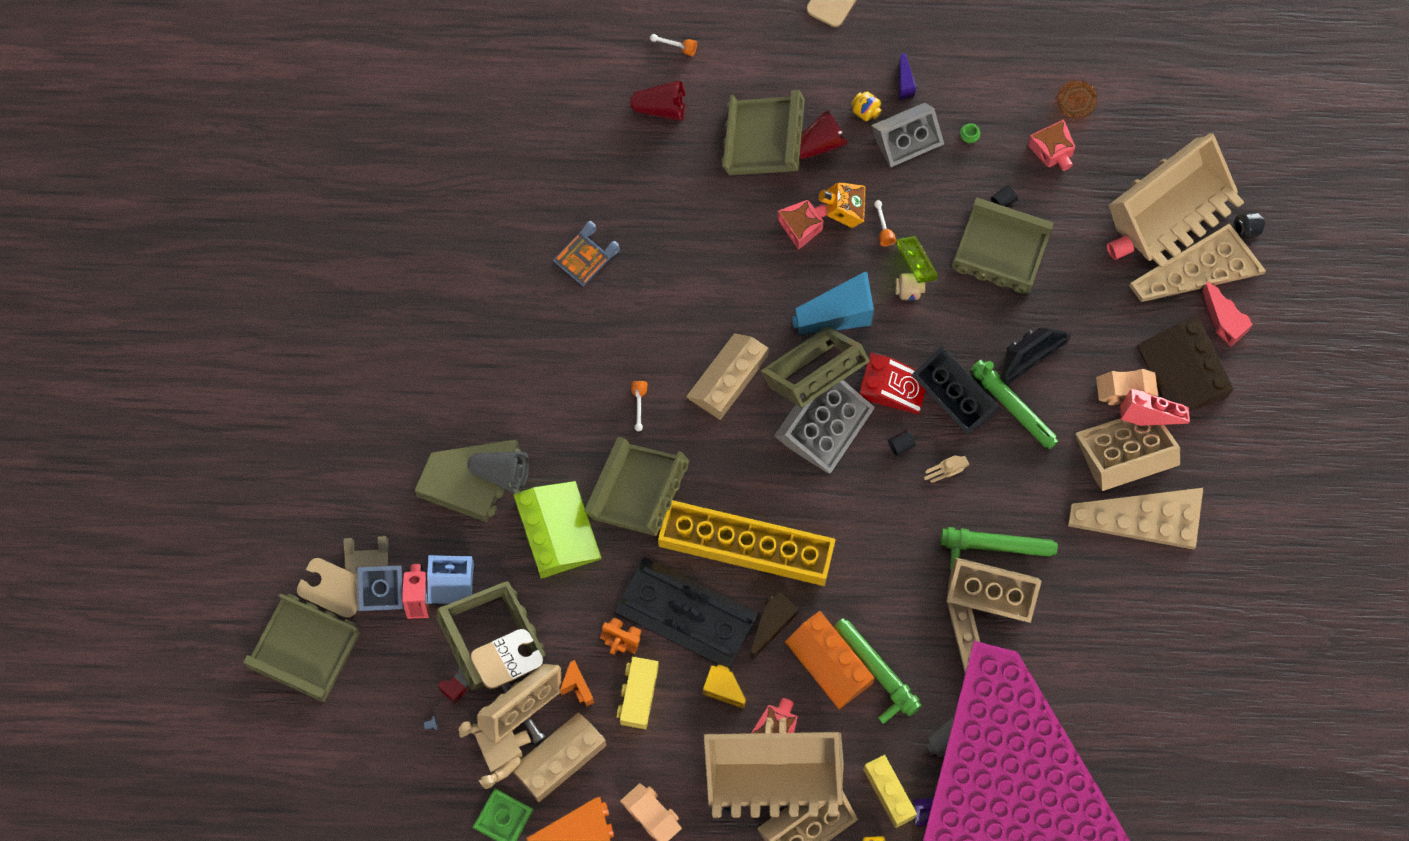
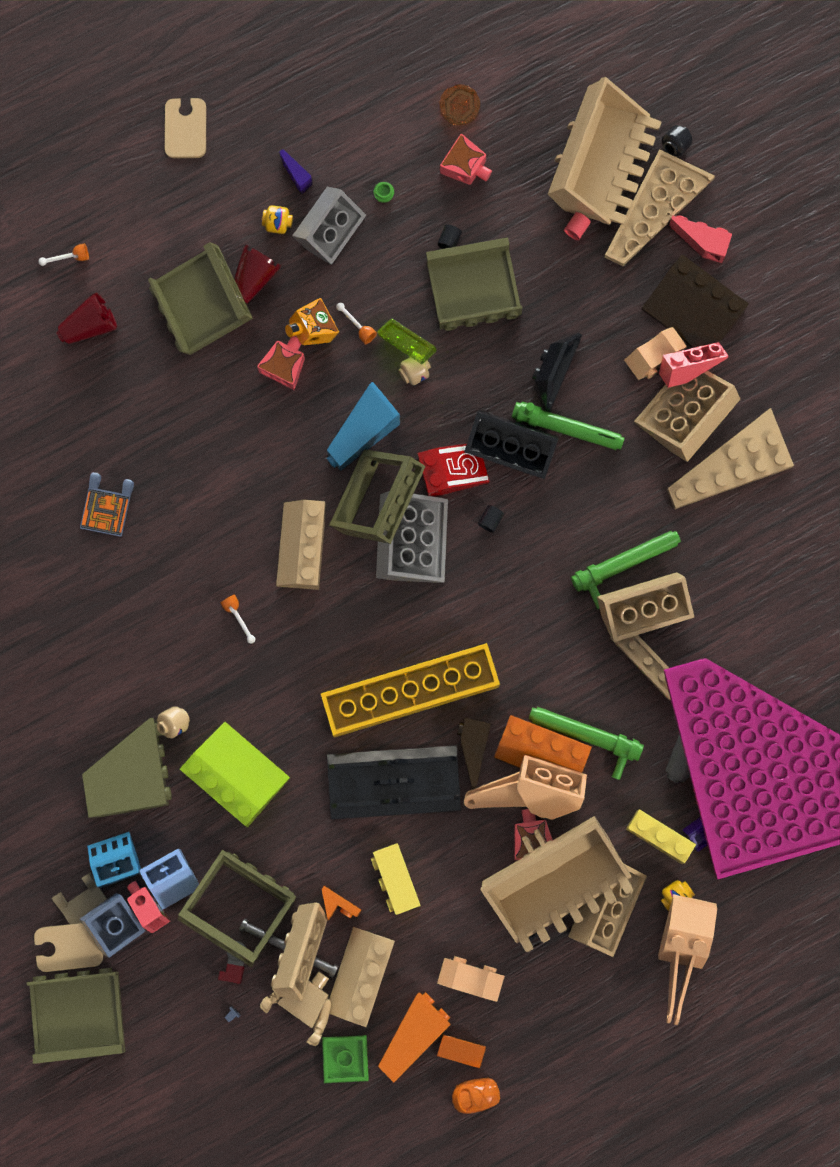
camera: 30 degrees left, 10 degrees up
(413, 539) = (113, 860): none -> dark azure slope
(500, 661) = (262, 927): piece -> none
(501, 469) = (155, 755): dark grey cone -> none
(536, 452) = (172, 722): none -> tan head
(620, 639) = (352, 842): orange hips -> none
(636, 487) = (285, 697): olive panel -> none
(723, 686) = (465, 829): yellow slope -> none
(807, 683) = (540, 786): none -> light nougat slope
(948, 467) = (544, 517): tan piece -> none

